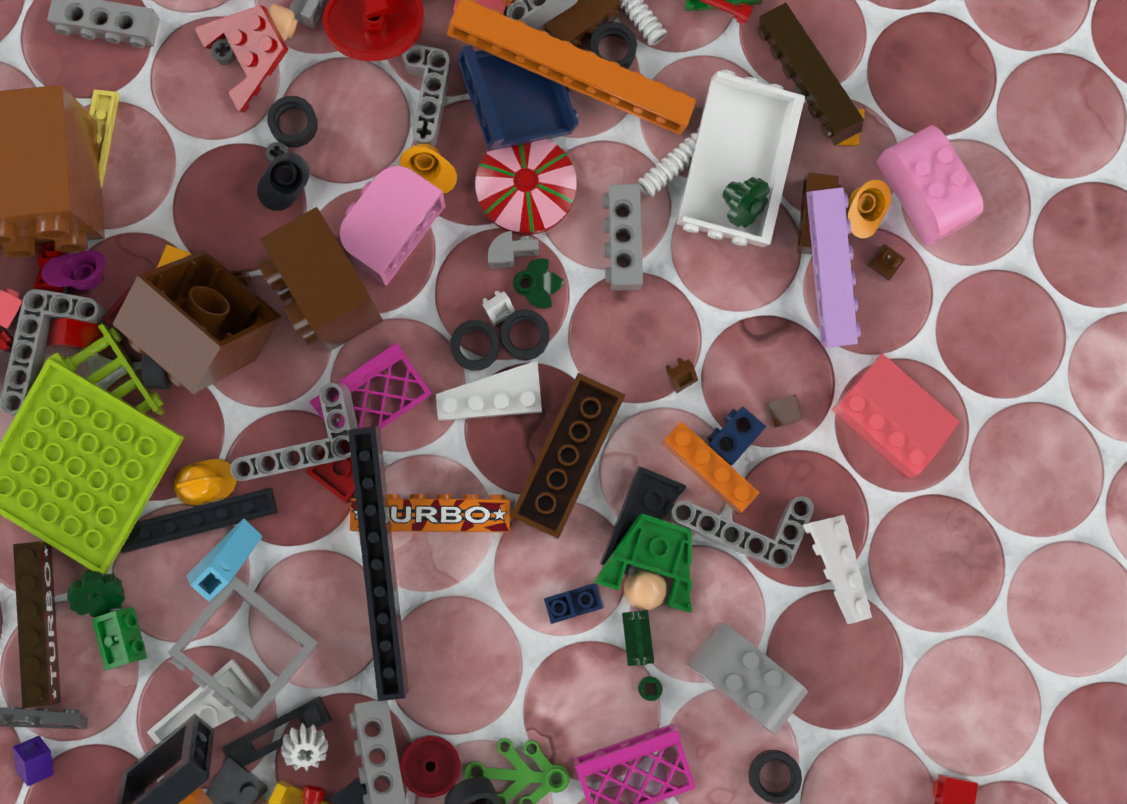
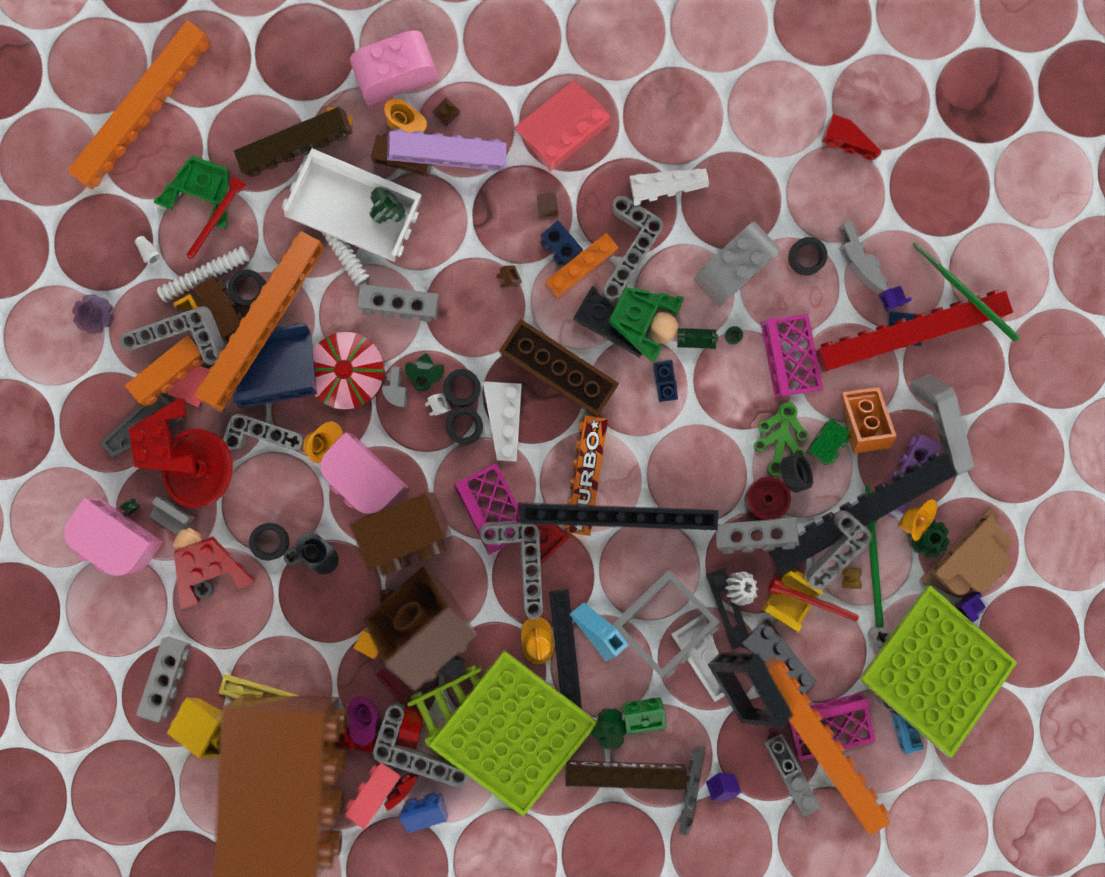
camera: 75 degrees left, 5 degrees up
(46, 63) = (198, 728): none -> yellow slope

